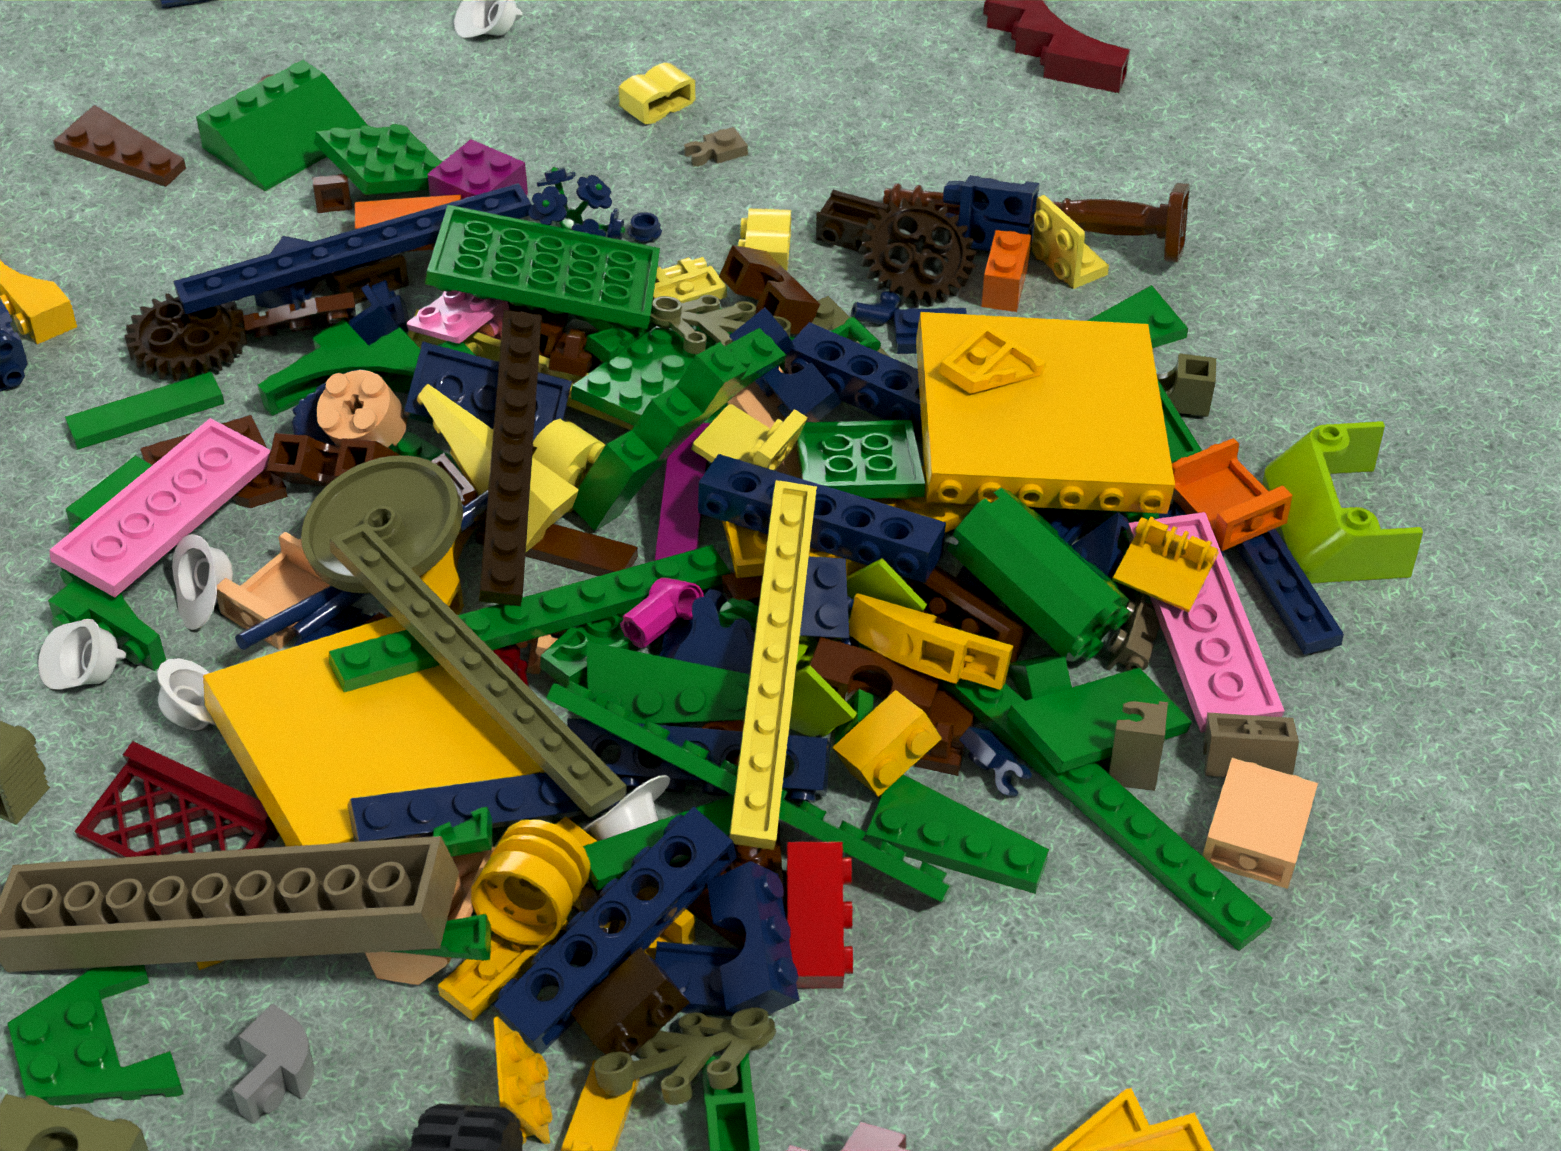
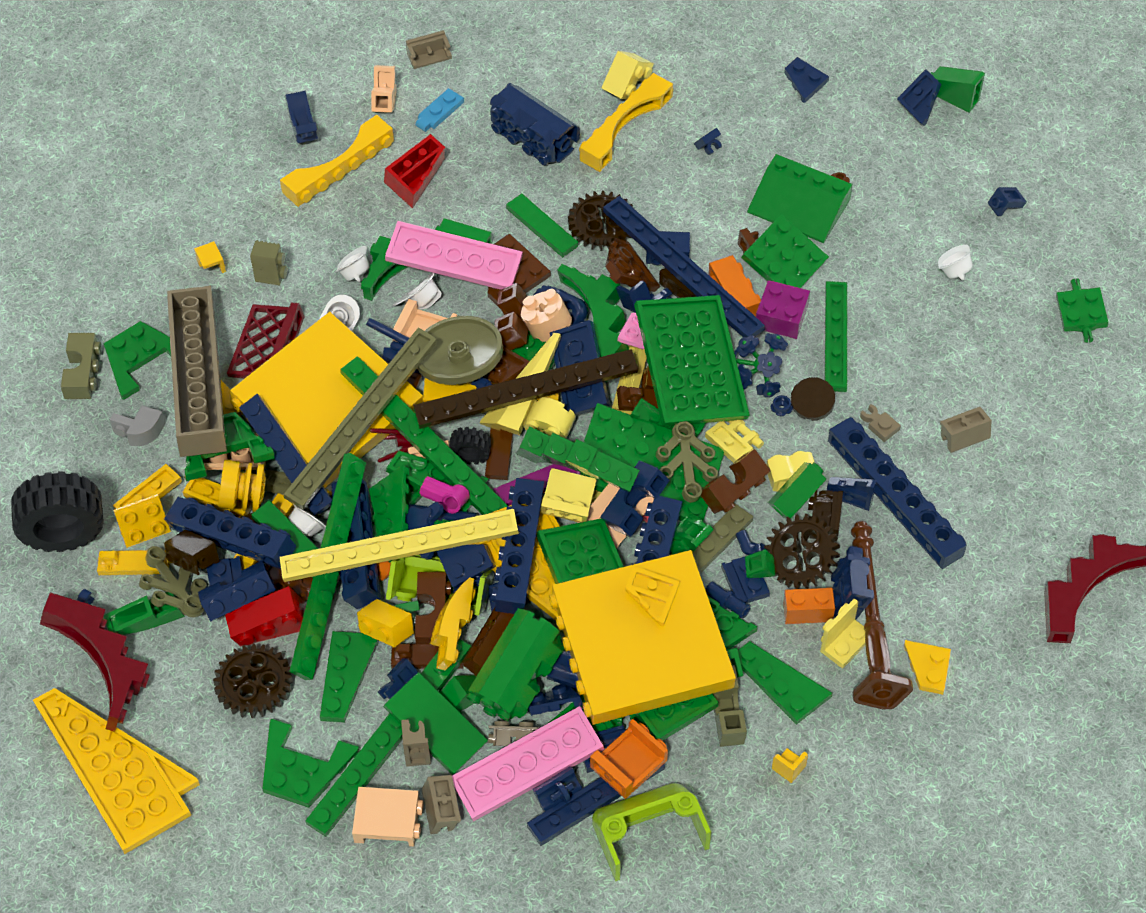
camera: 75 degrees right, 10 degrees up
(54, 78) = (805, 78): none -> dark blue wing
(107, 191) = (708, 140): none -> dark blue tile
(116, 145) = (755, 128): reddish brown wing -> none
(437, 1061) = (158, 483): none -> yellow plate
(549, 153) = (836, 335): none -> green tile
(566, 561) = (470, 445): none -> black tyre
(649, 190) = (813, 398): none -> dark brown tile
(656, 93) = (915, 374): light yellow brick -> none
(768, 68) = (966, 429): none -> dark tan hinge
(815, 230) = (797, 489): none -> green brick
(838, 174) = (855, 491): none -> dark blue wing
(843, 153) = (927, 535): none -> dark blue brick
(896, 978) = (243, 665): none -> dark brown gear
(923, 296) = (760, 565): none -> green slope
(1129, 186) = (929, 665): none -> yellow wing
(1140, 946) = (296, 775): none -> green wing
(1166, 564) = (549, 730): yellow hinge -> none
(1258, 592) = (557, 789): none -> dark blue hips
(1262, 349) = (789, 764): none -> yellow panel

